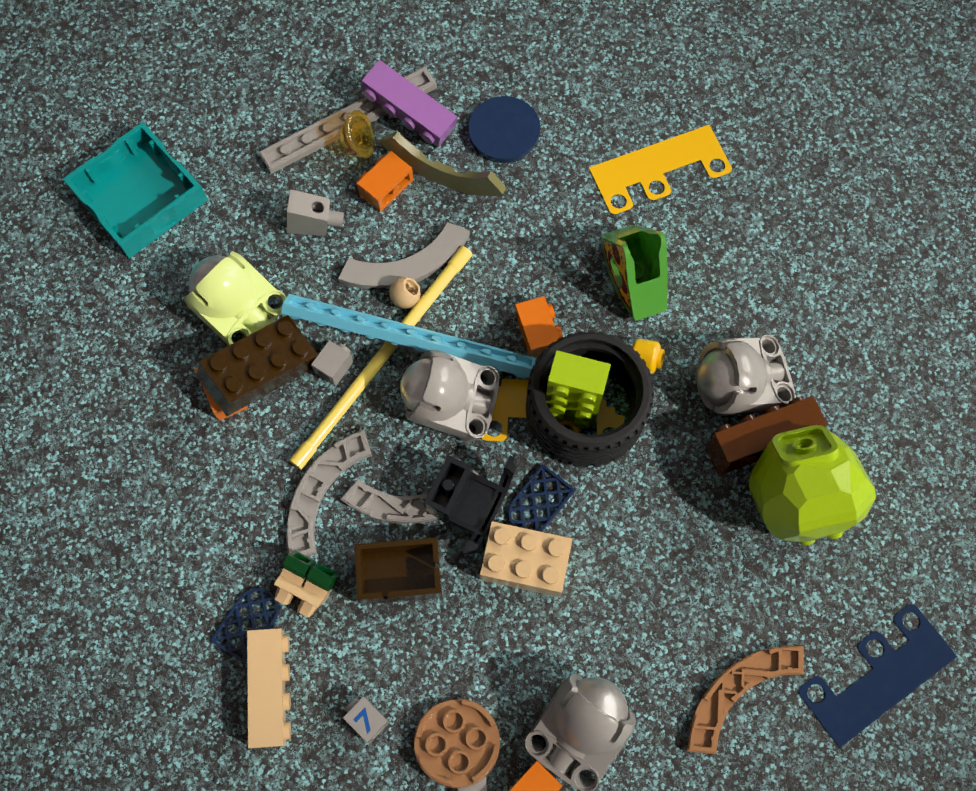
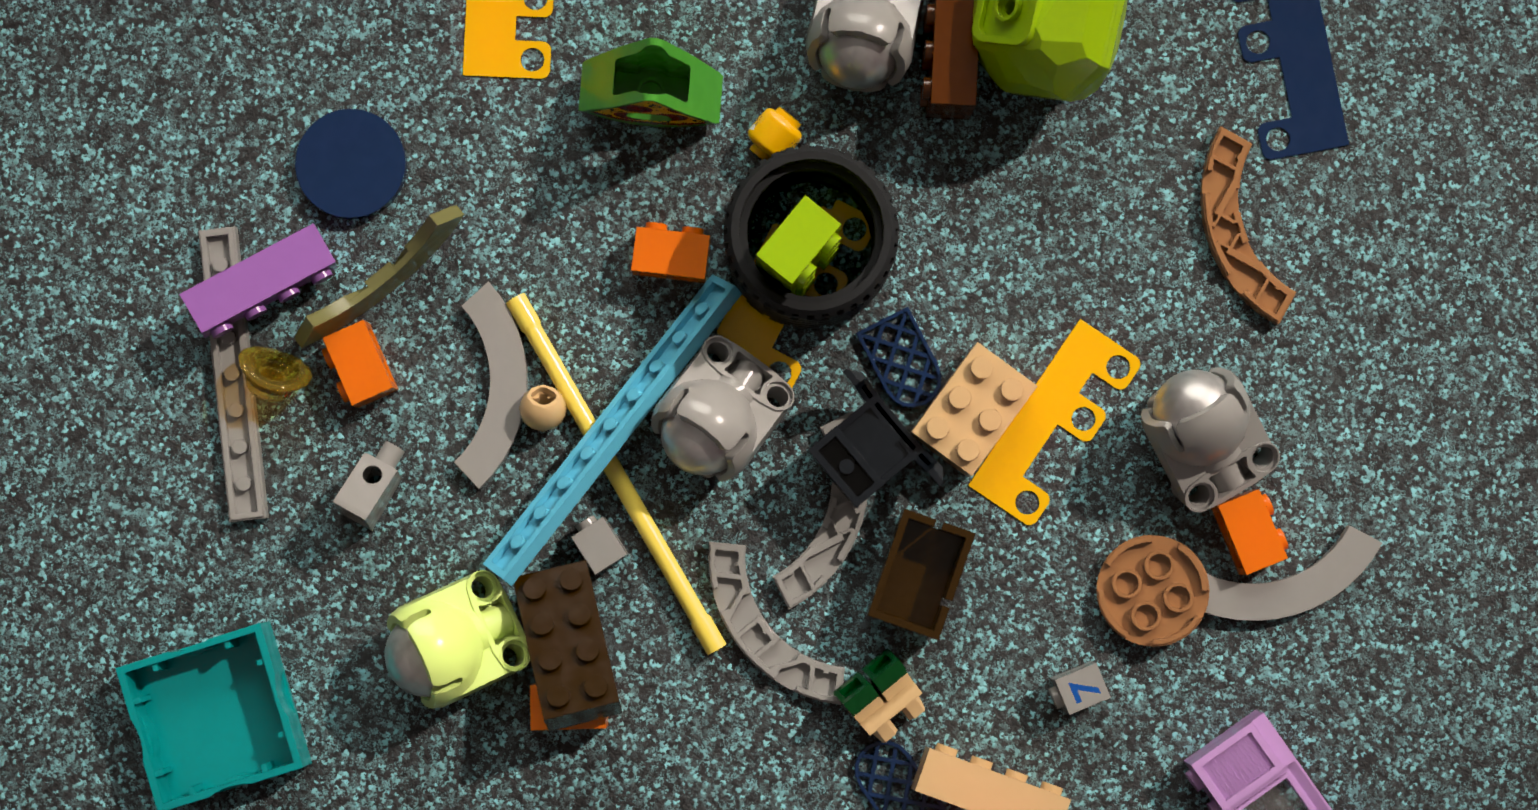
camera: 70 degrees left, 15 degrees up
(554, 613) = (1049, 405): none -> yellow piece

